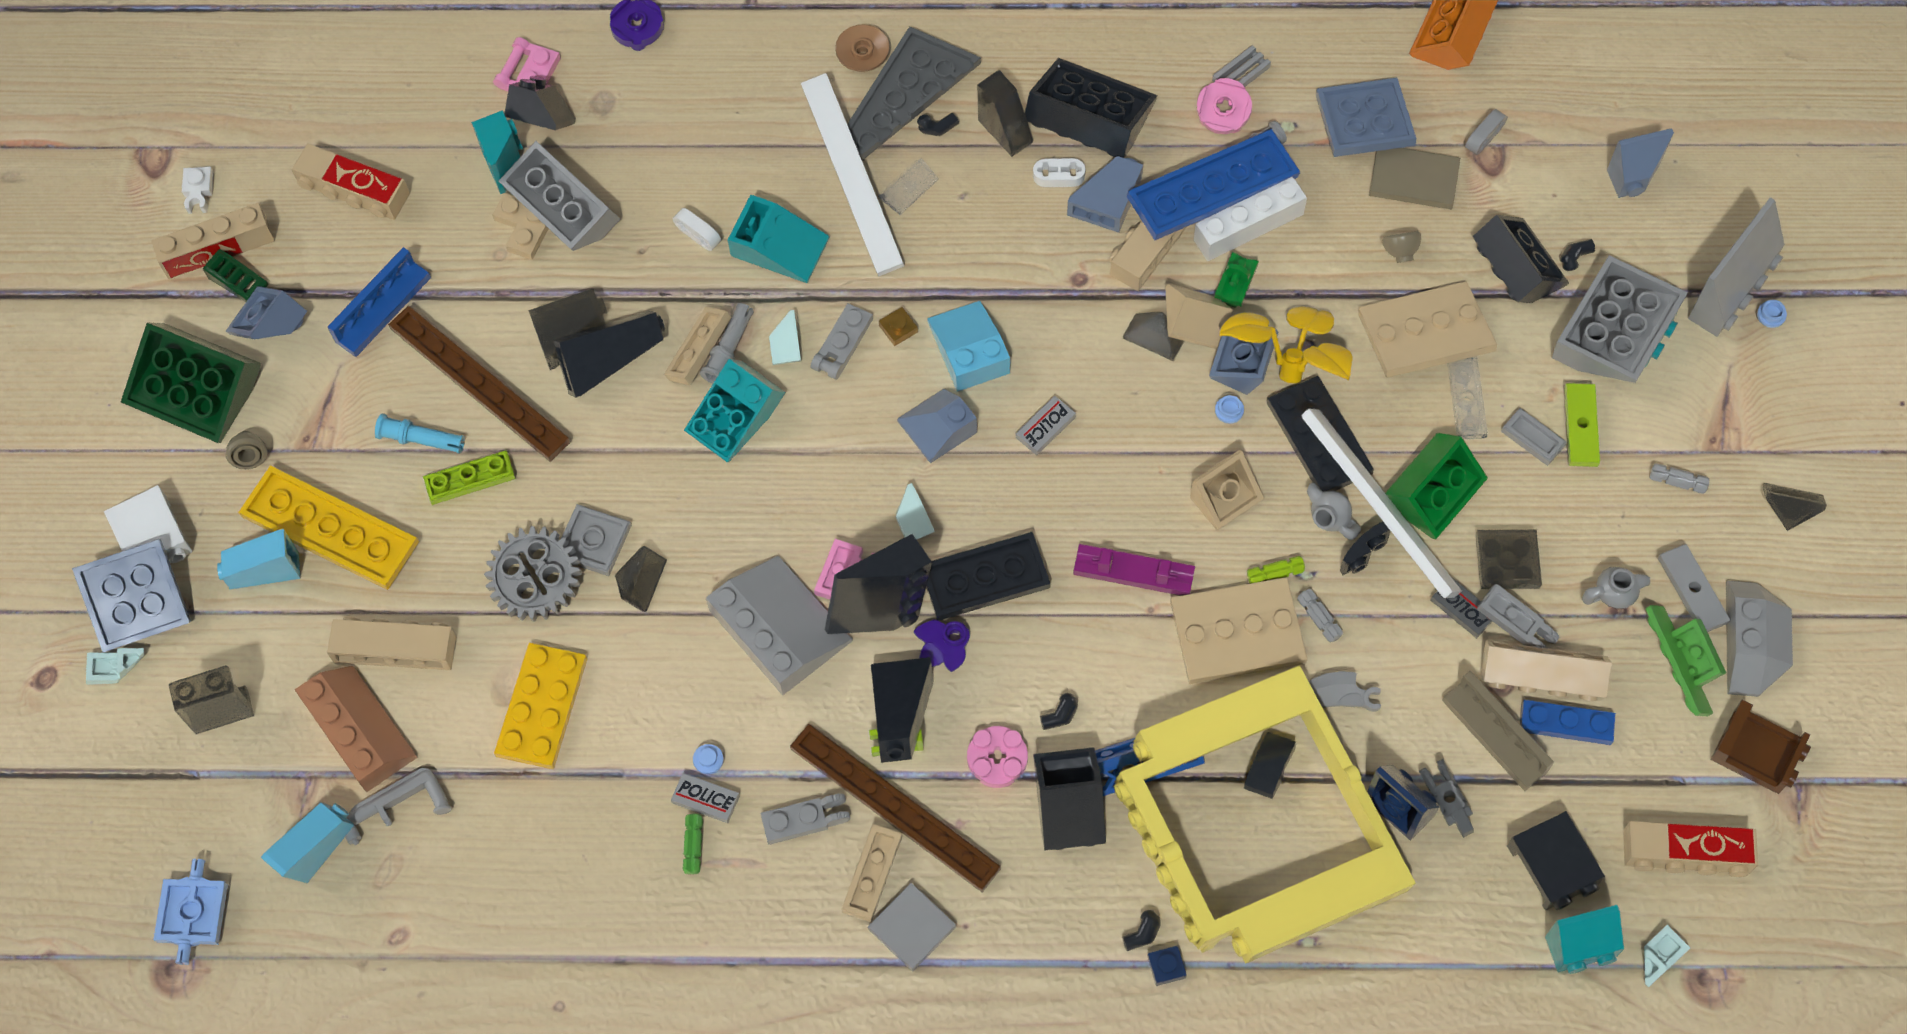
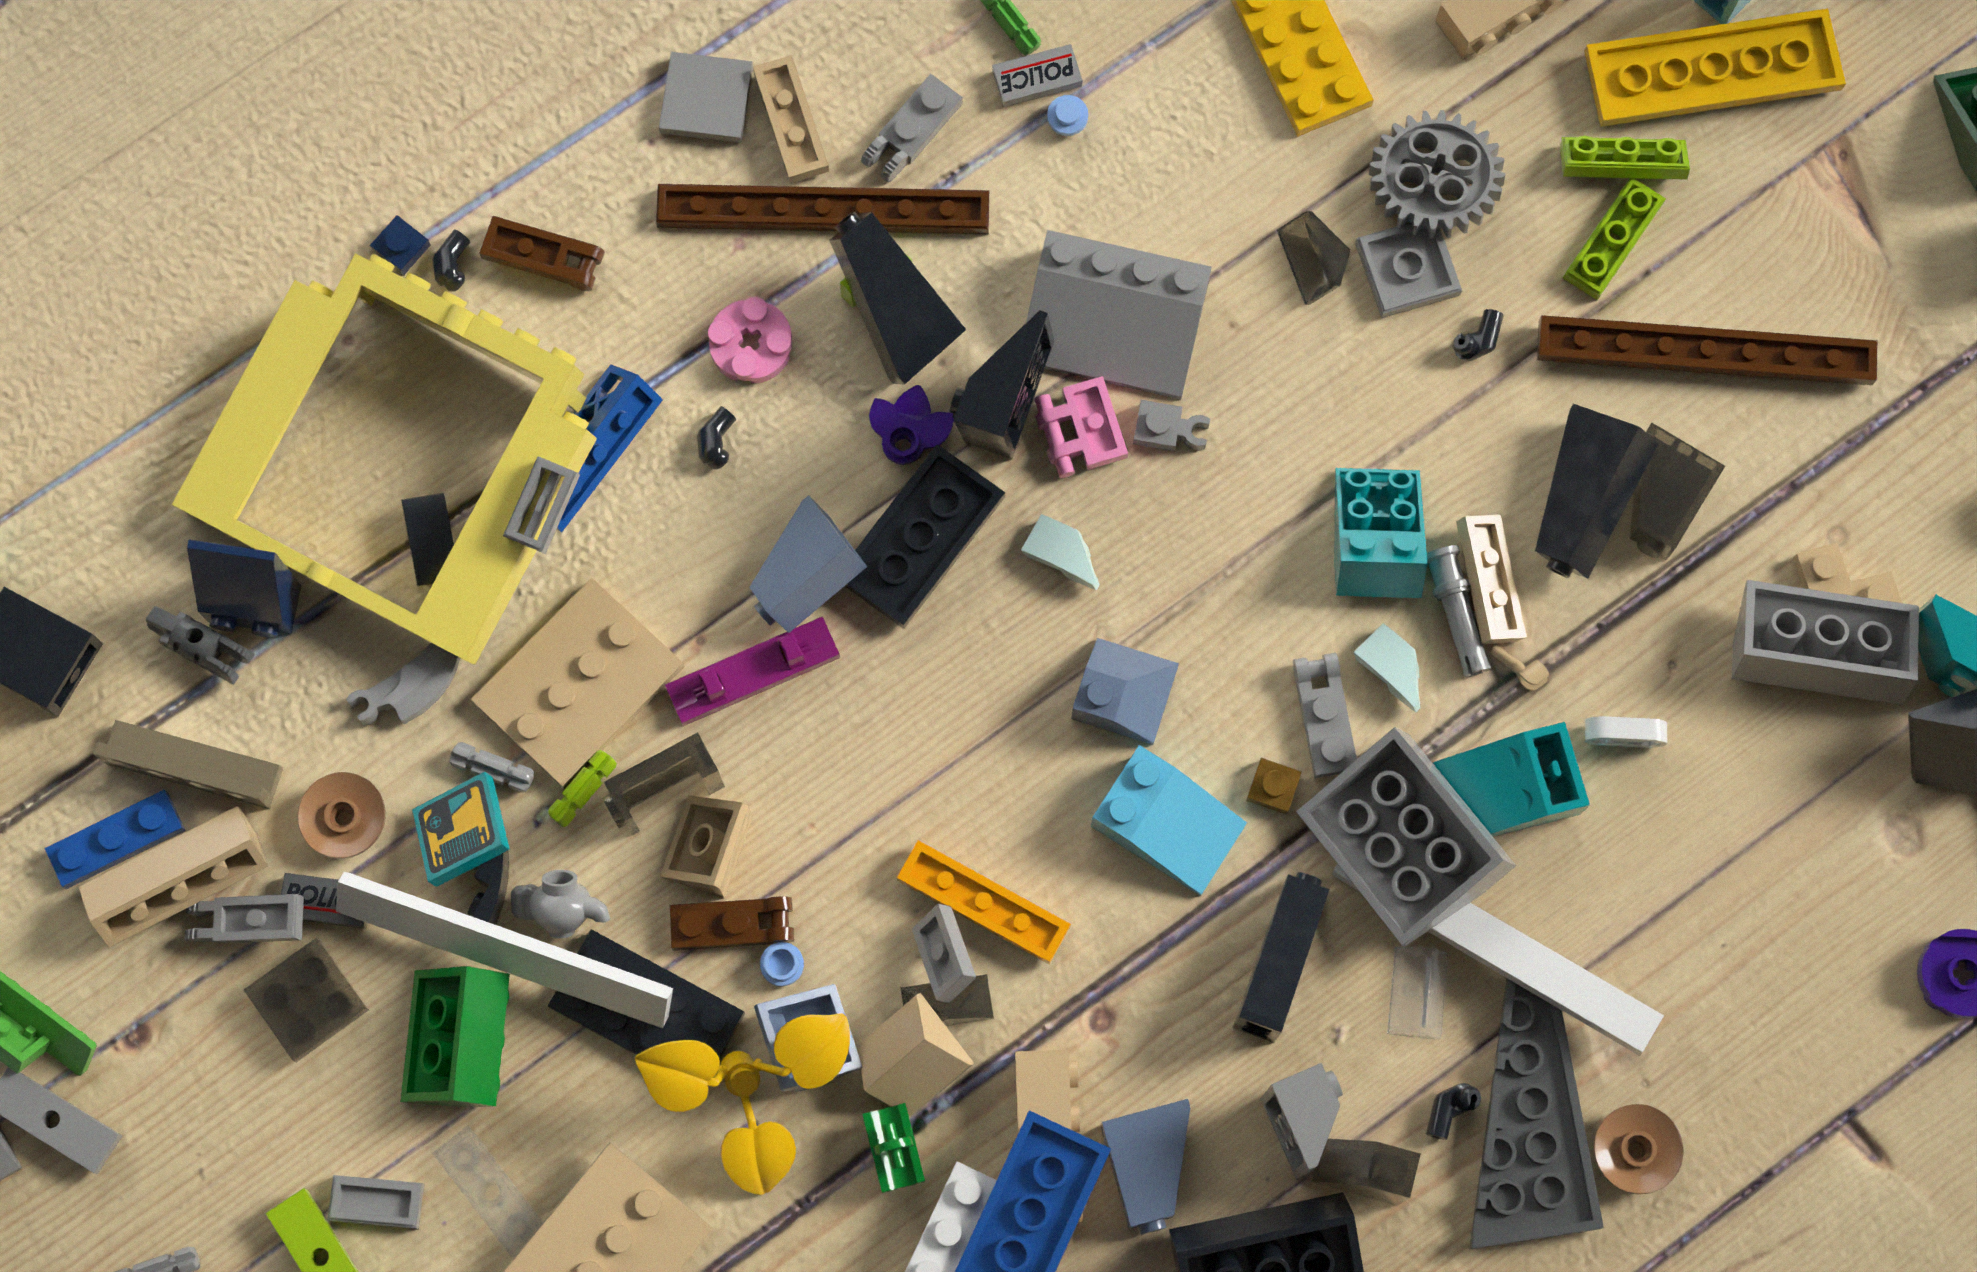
camera: 140 degrees right, 10 degrees up
(246, 451) = (1892, 84): dark tan brick -> none
(380, 303) = (1914, 363): blue fence -> none
(406, 432) = (1731, 234): medium azure pin -> none
(435, 520) = (1624, 158): none -> lime tile
(589, 471) = (1482, 341): none -> black arm
(718, 288) = (1530, 677): none -> tan hand
(800, 546) = (1161, 426): none -> light grey plate
(854, 247) = (1405, 837): none -> light grey slope
(967, 234) = (1282, 957): none -> black slope
(1016, 149) = (1303, 1114): none -> light grey slope
(1045, 425) = (992, 782): light grey tile -> none
(1059, 172) = (1246, 1161): white beam -> none
(1063, 596) = (804, 567): none -> sand blue slope
(1070, 799) = (627, 330): black slope -> none
(1084, 896) = (540, 252): none -> reddish brown plate
(1098, 368) = (983, 902): none -> light orange plate
(1140, 349) = (943, 953): none -> light grey plate
(1175, 719) = (556, 511): none -> light grey tile
(1230, 536) = (658, 775): none -> clear smoke panel
(1261, 457) = (730, 923): none -> reddish brown plate
(1362, 584) = (460, 829): none -> tile
(1434, 633) = (328, 799): none -> medium nougat dish
(1616, 588) = (145, 1047): light grey piece -> none

